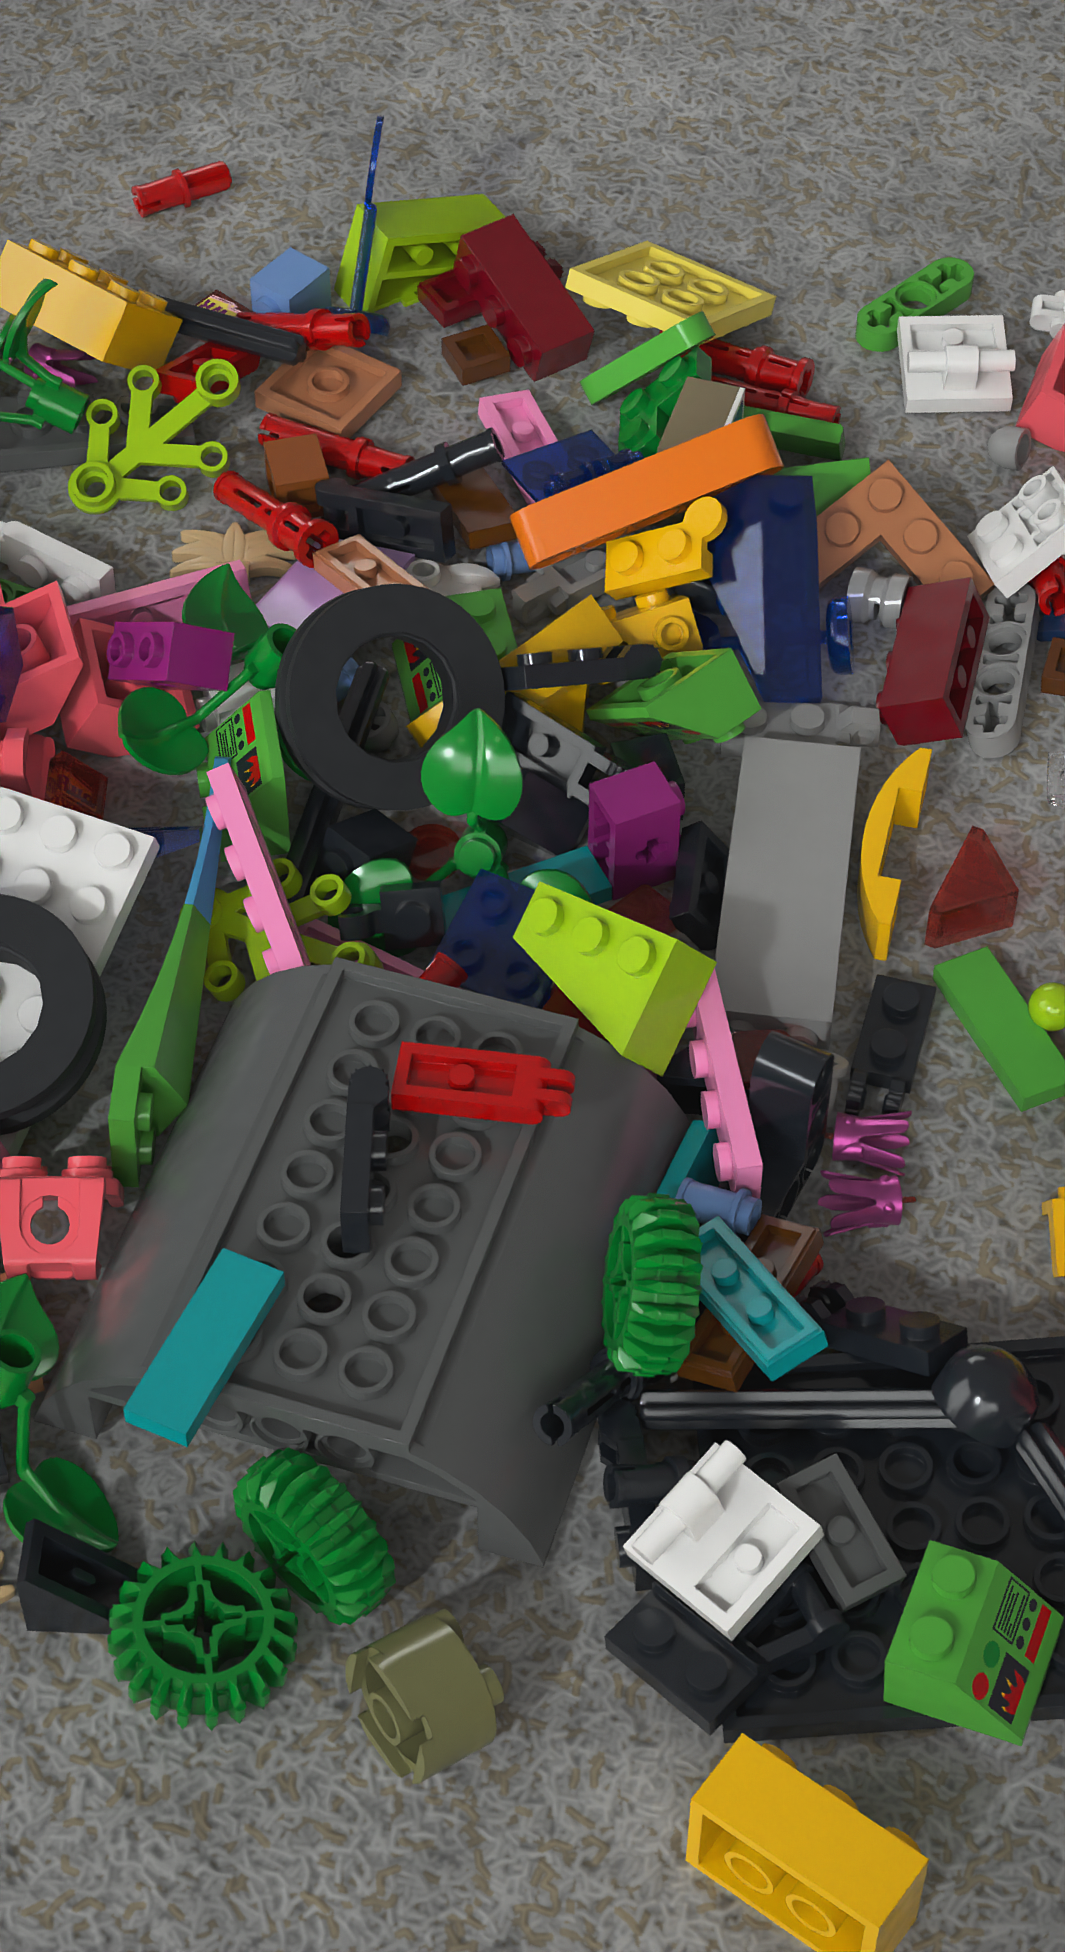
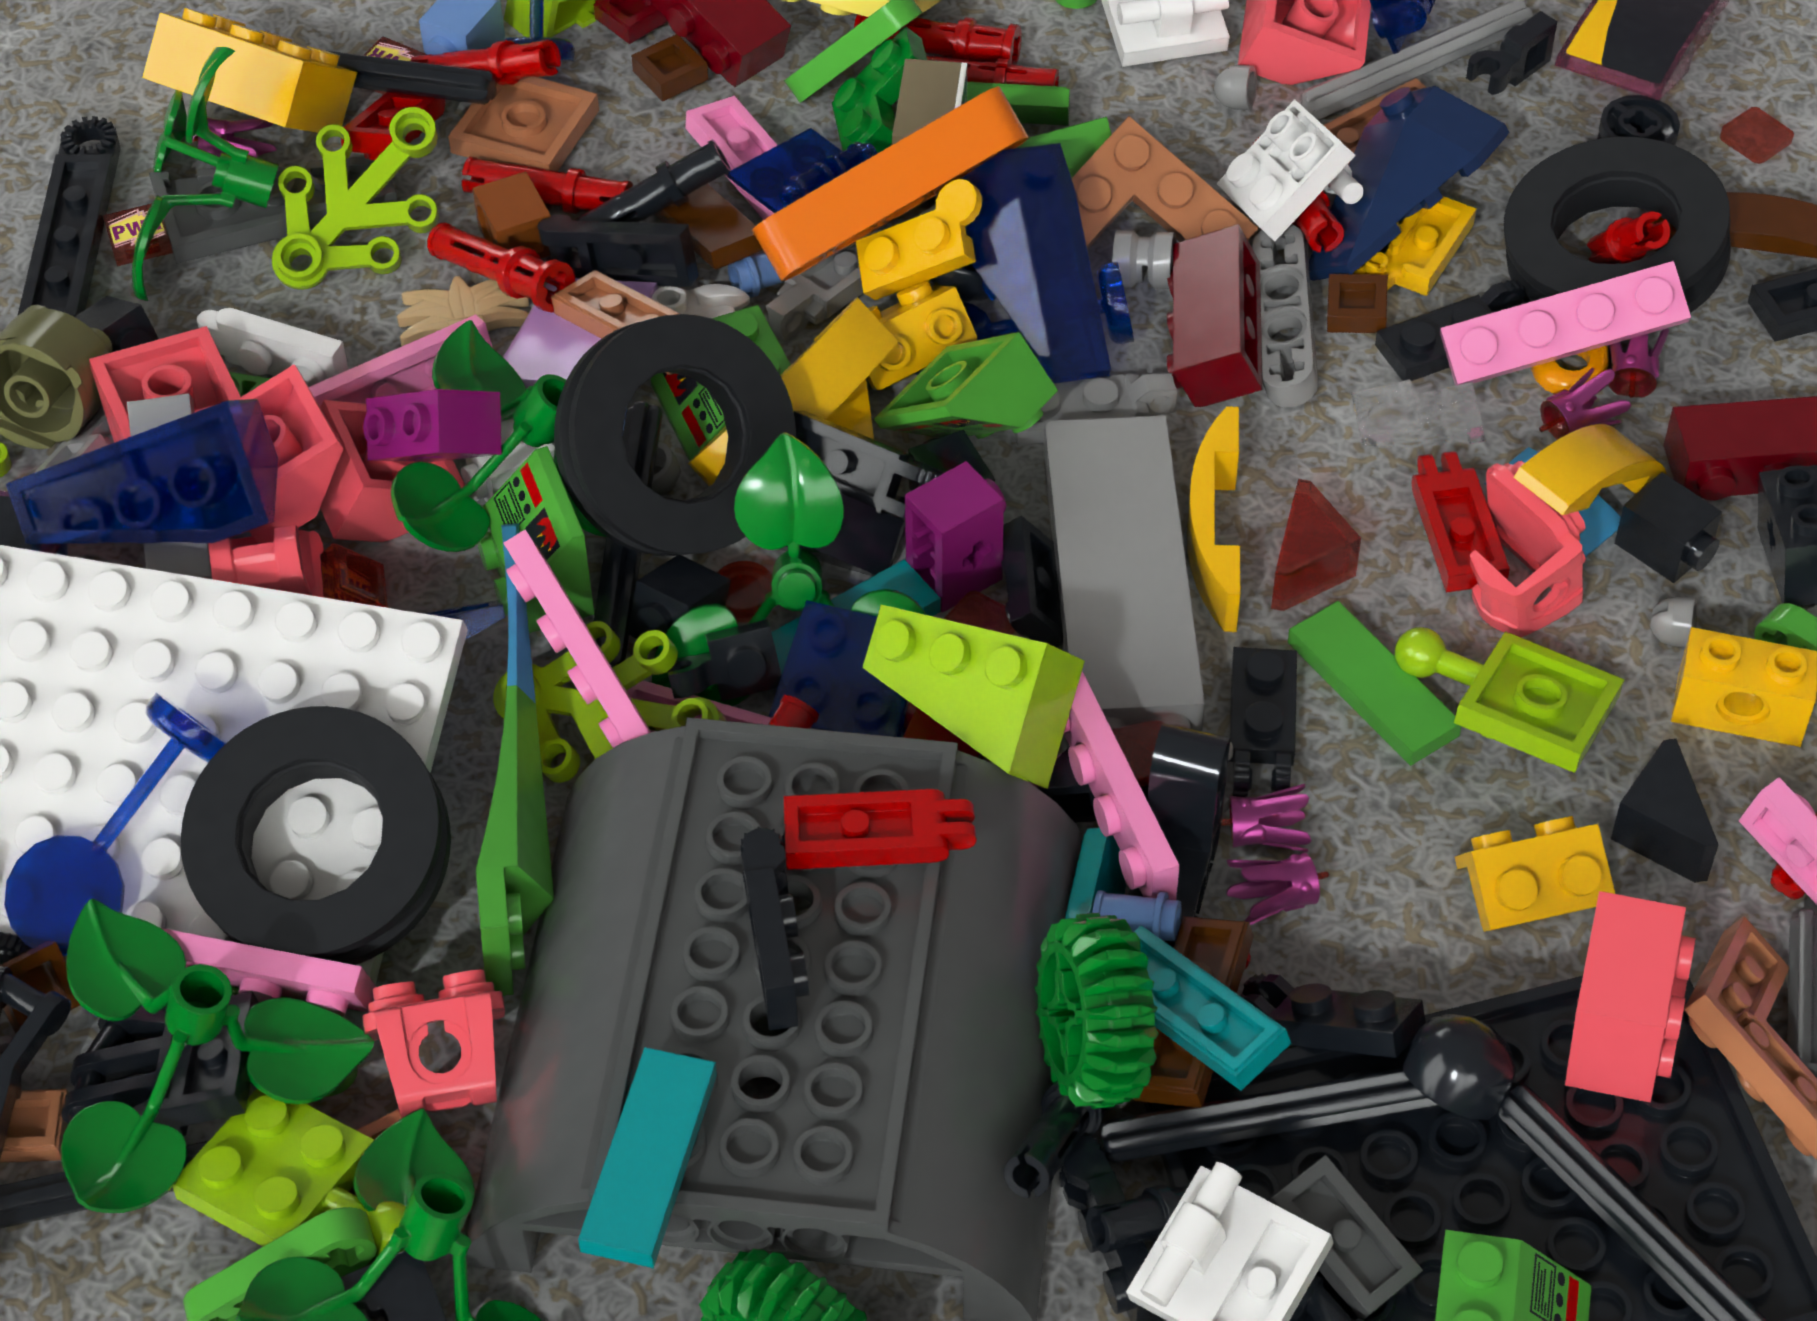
camera: 10 degrees left, 0 degrees up
(583, 667) = (867, 374): black hinge -> none

